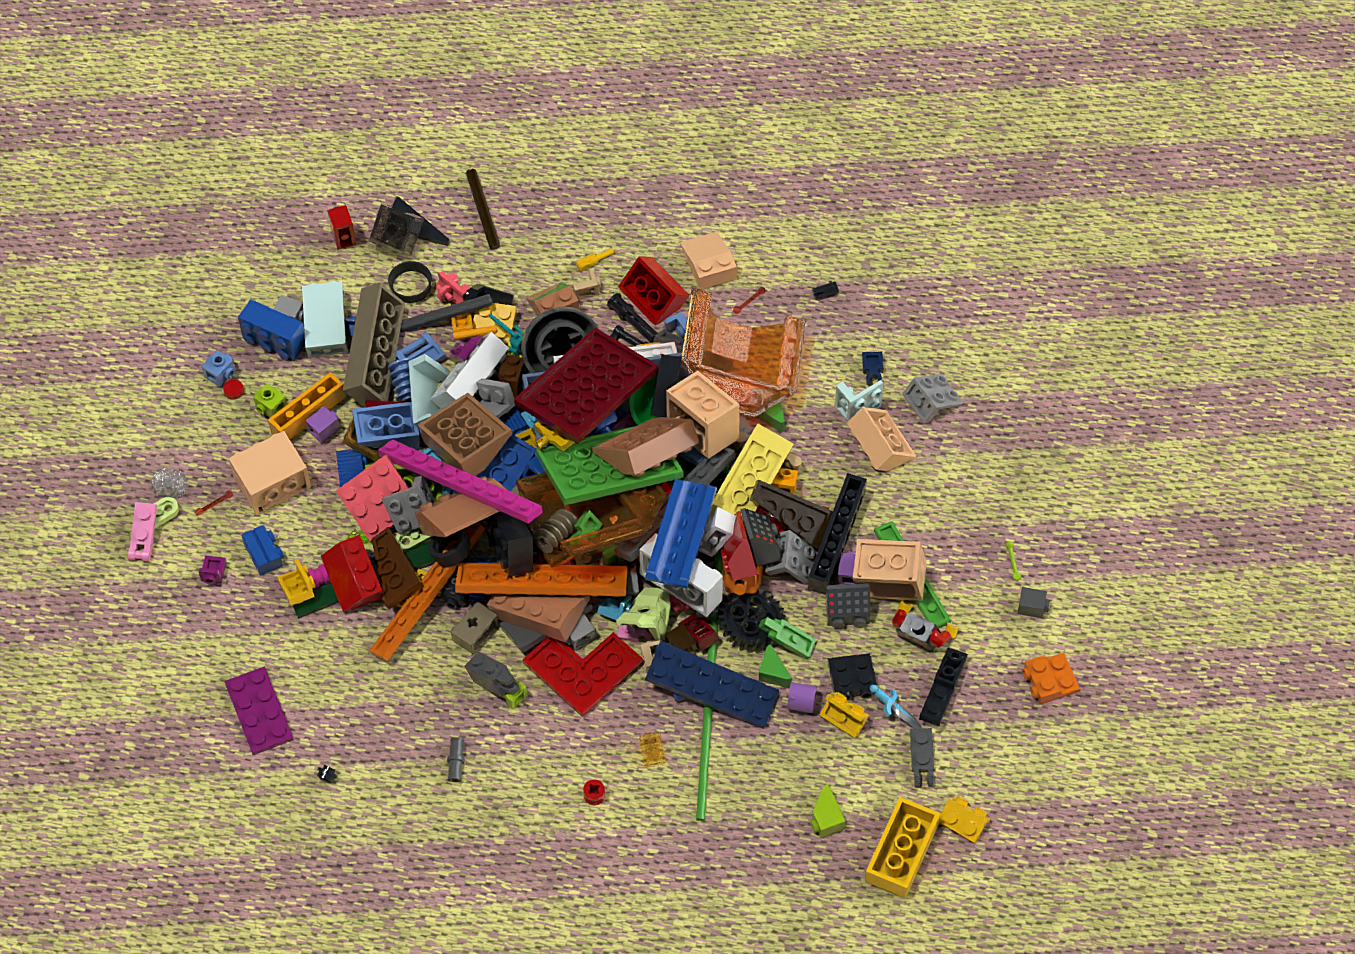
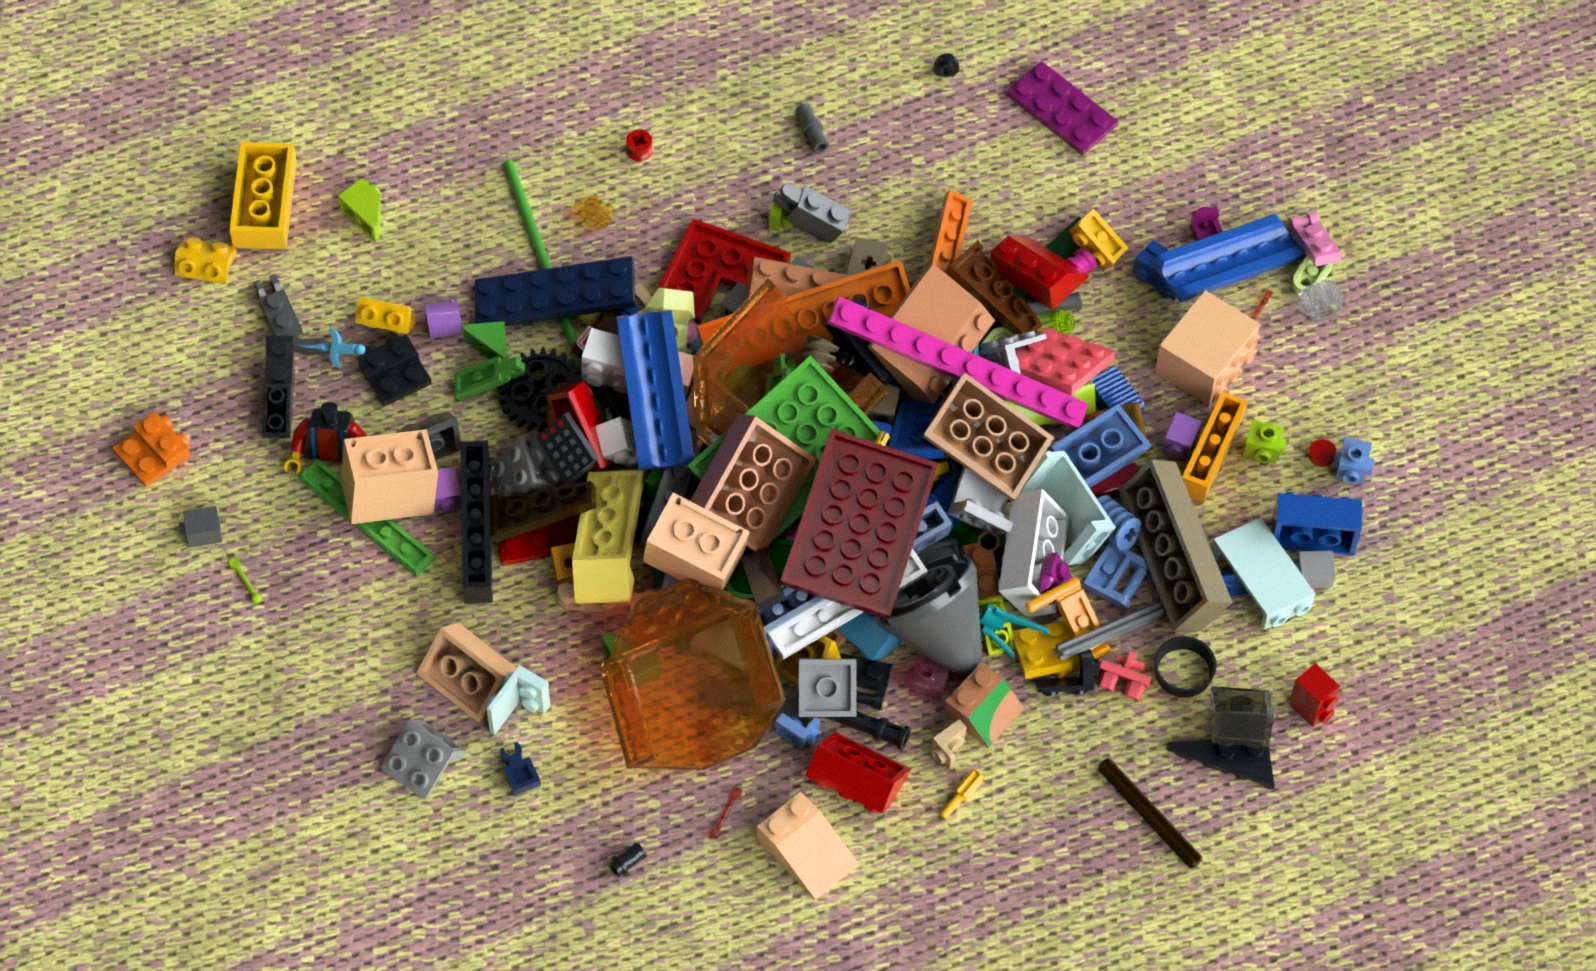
camera: 155 degrees right, 0 degrees up
(213, 532) = (1228, 257): none -> blue plate
(651, 330) = (827, 687): none -> light grey plate

